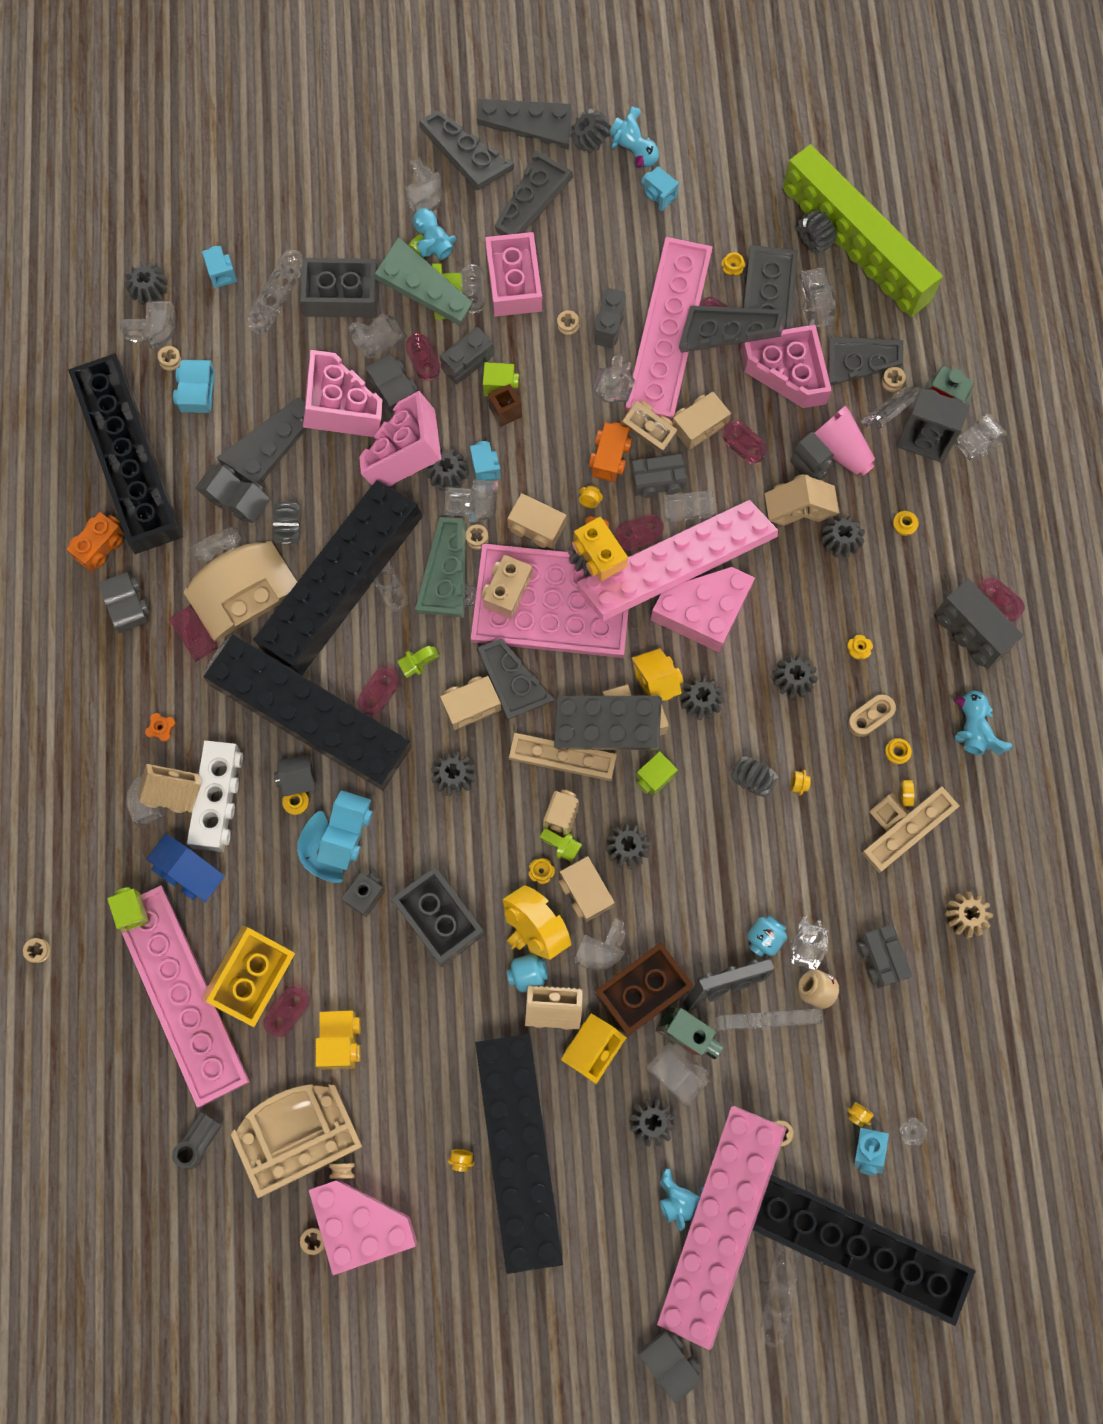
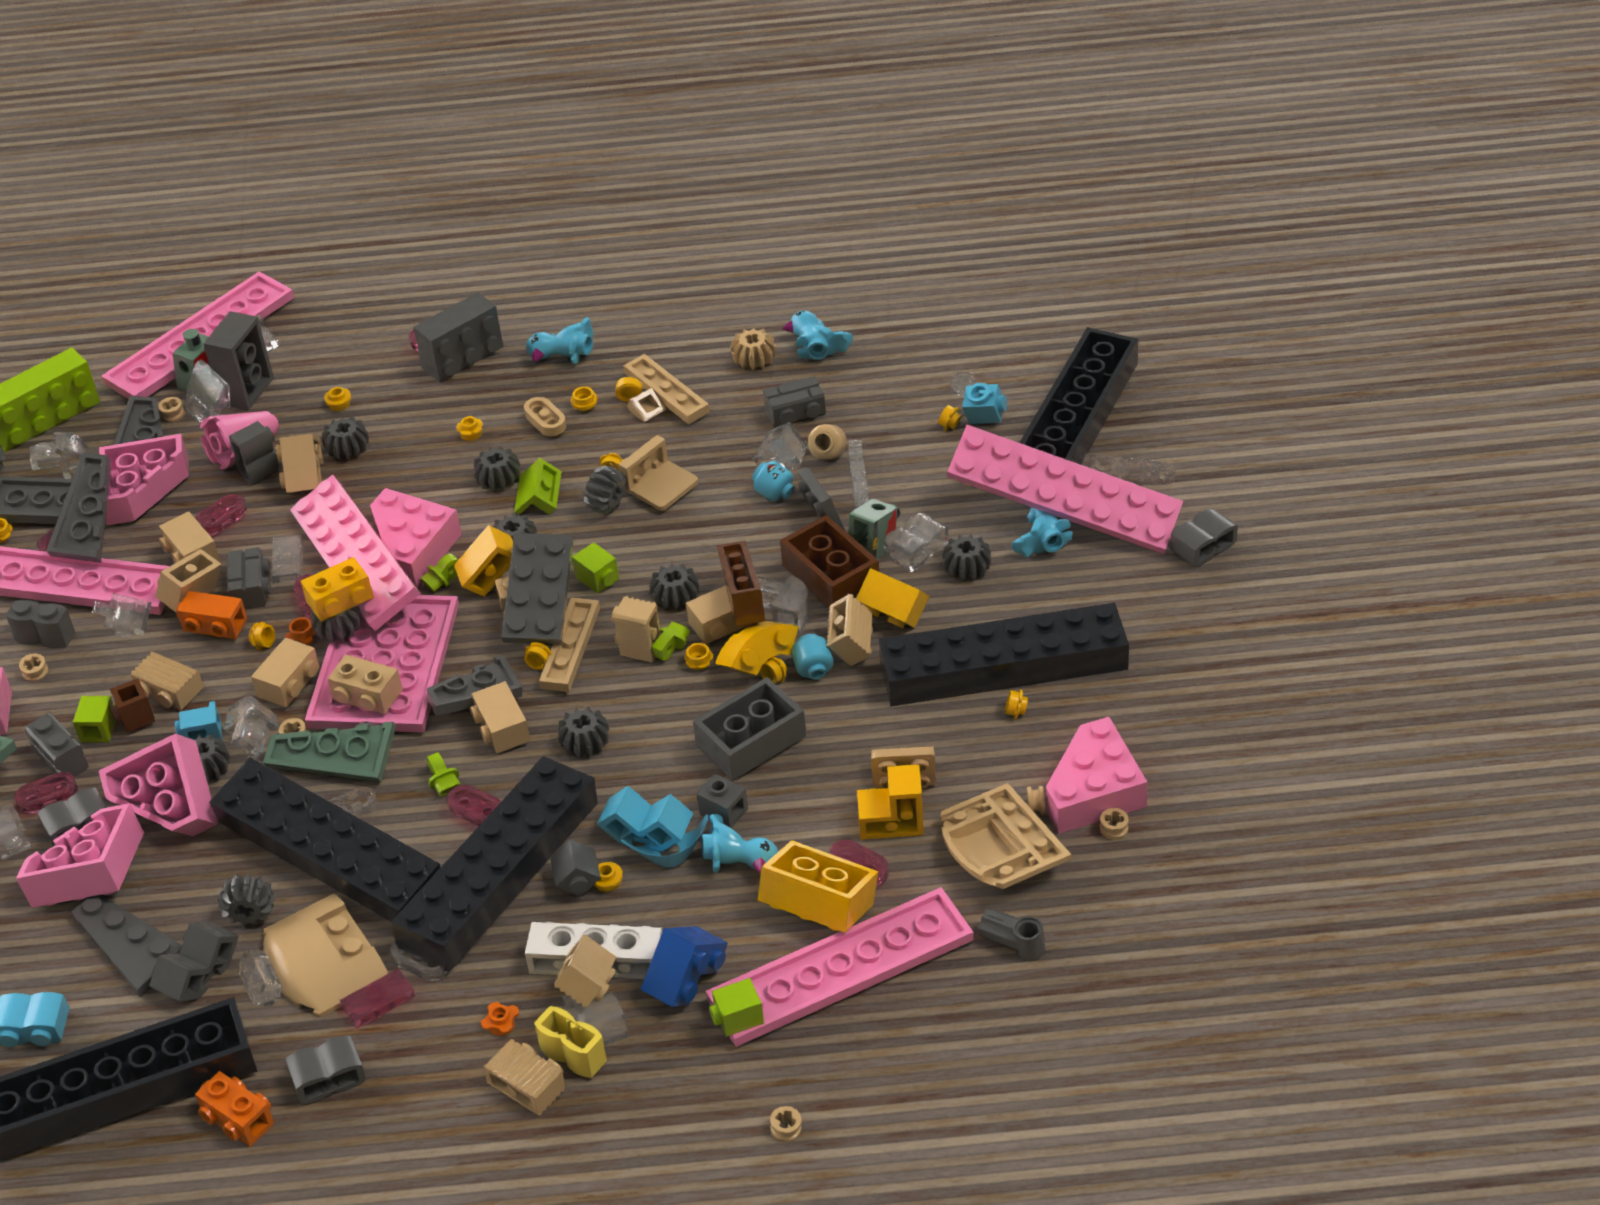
camera: 85 degrees left, 30 degrees down
(98, 749) = (525, 1076): none -> tan brick
(113, 786) = (570, 1041): none -> light yellow brick
(308, 901) = (728, 847): none -> medium azure animal
(382, 1053) = (903, 756): none -> tan bracket
(538, 428) = (168, 681): none -> tan brick
(547, 729) = (536, 655): none -> yellow plate
(602, 904) = (741, 584): none -> reddish brown slope
(658, 637) = (441, 573): none -> lime piece
(769, 716) = (539, 487): none -> lime panel
(777, 826) = (654, 477): none -> tan bracket
(981, 978) = (815, 337): none -> medium azure animal
(999, 388) = (154, 365): none -> bright pink plate

